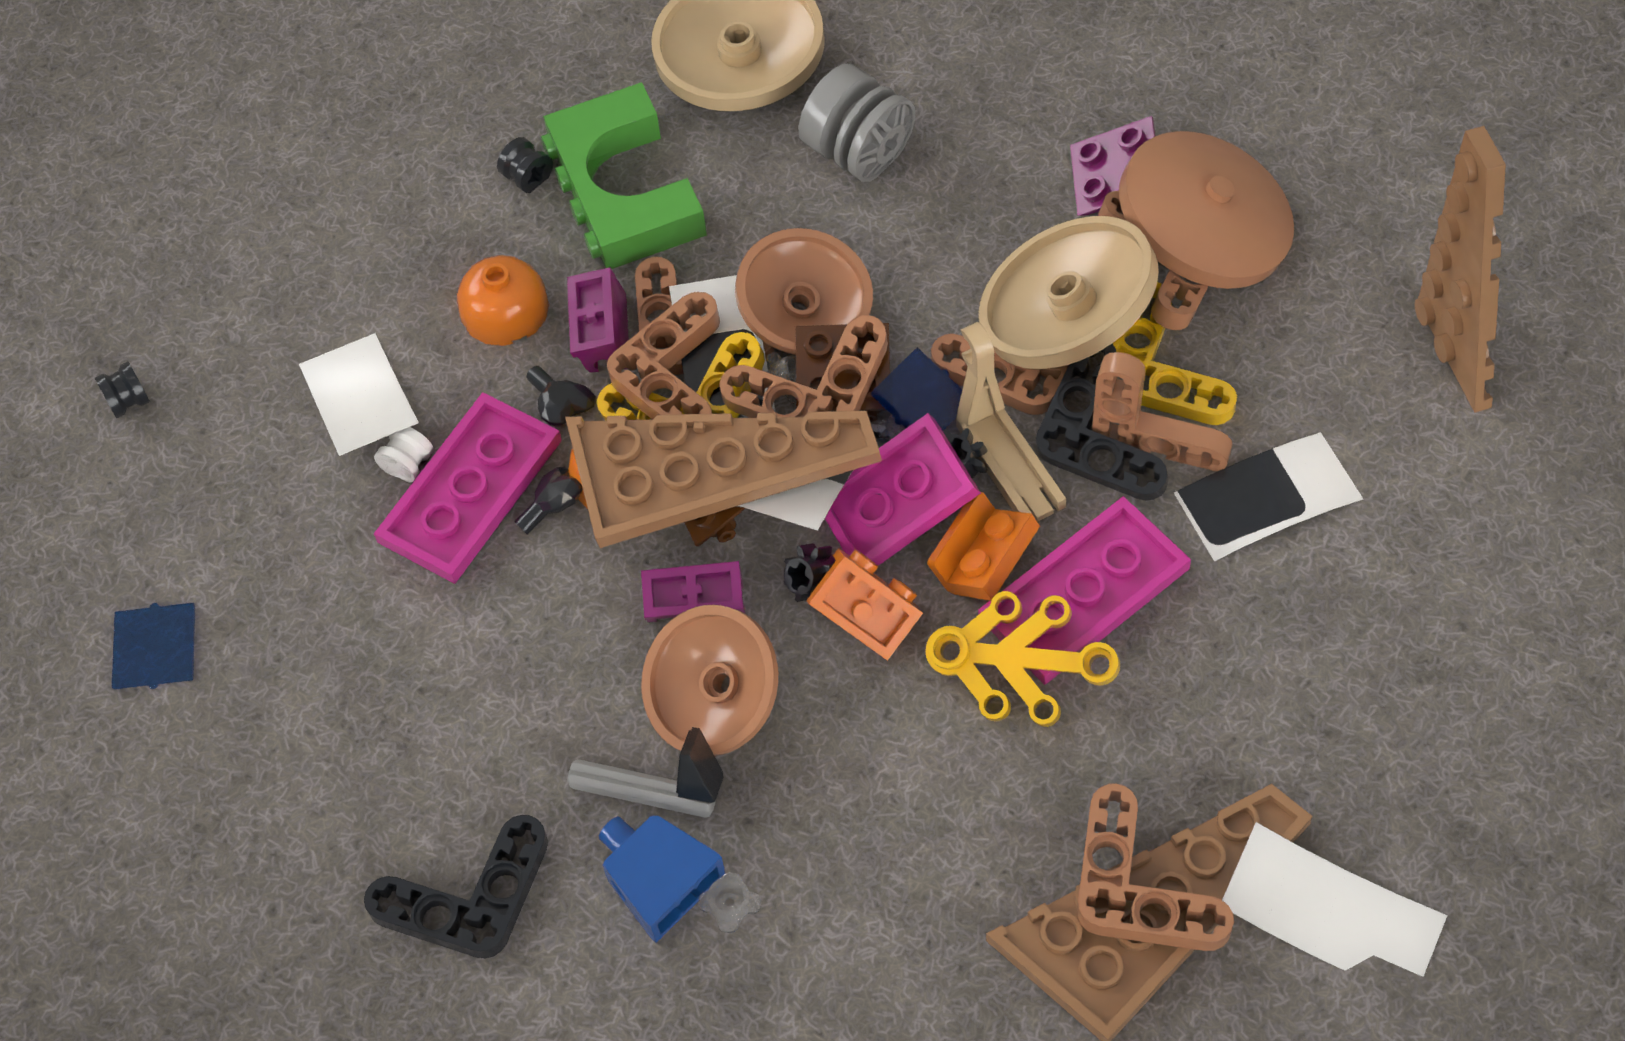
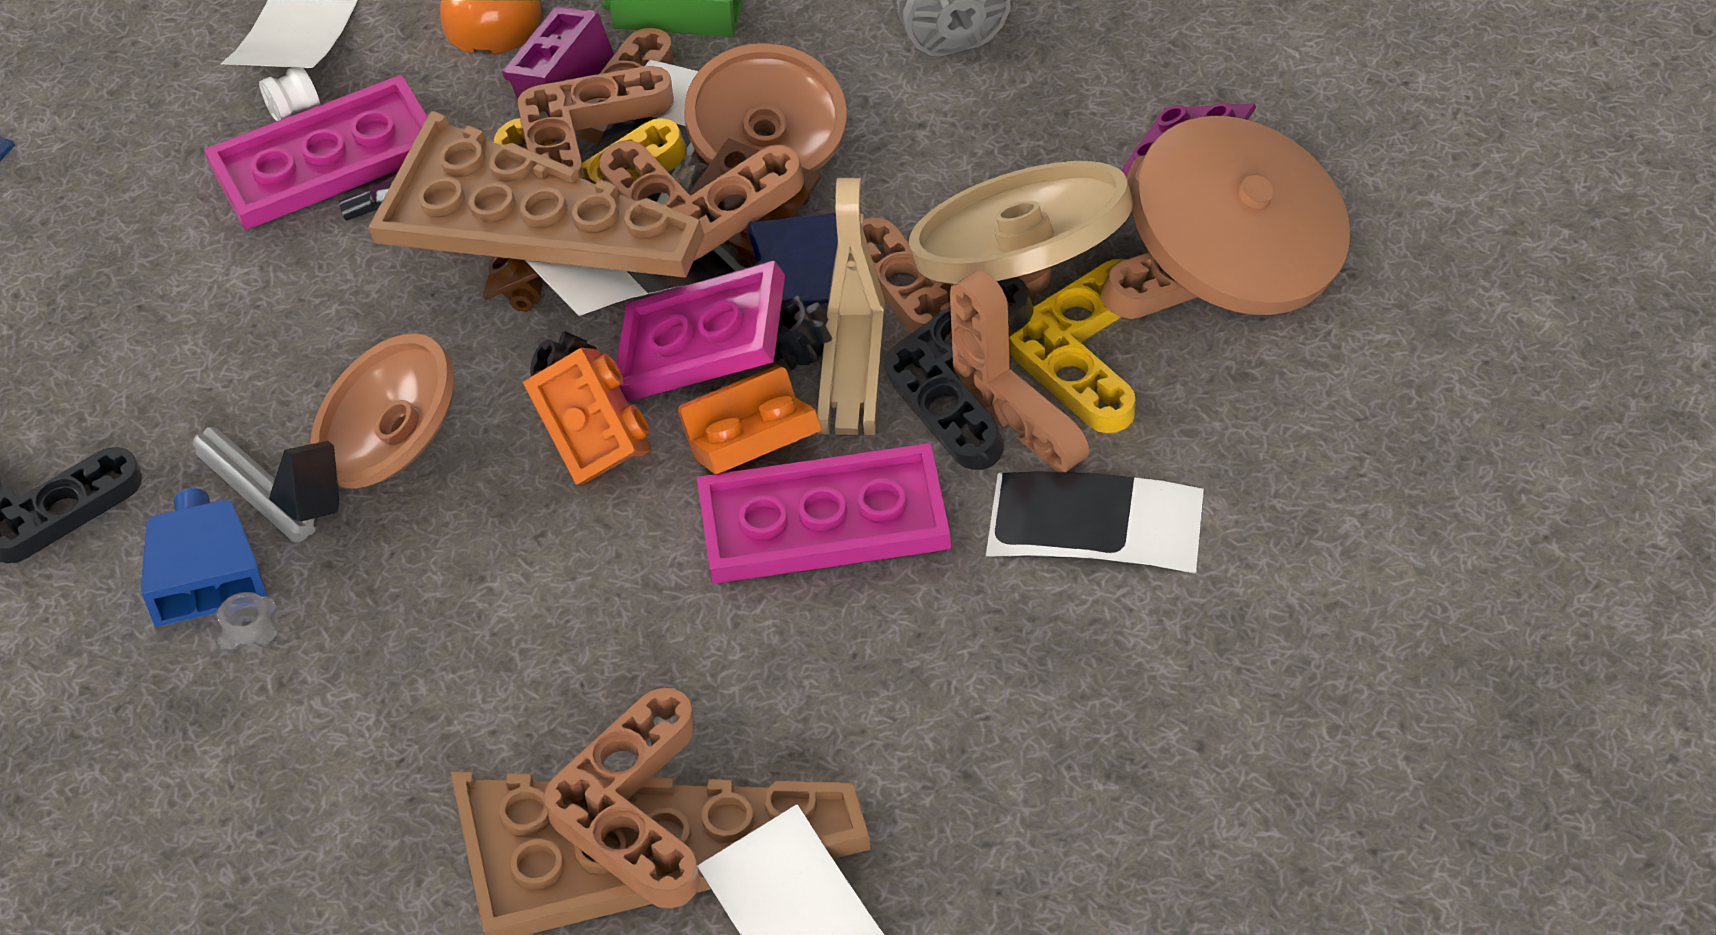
camera: 30 degrees right, 10 degrees down
(559, 398) = (474, 110): black rock -> none
(678, 589) = (457, 328): magenta hinge -> none
(1013, 655) = (694, 533): yellow plant -> none
(1458, 287) = (1431, 344): medium nougat wing -> none

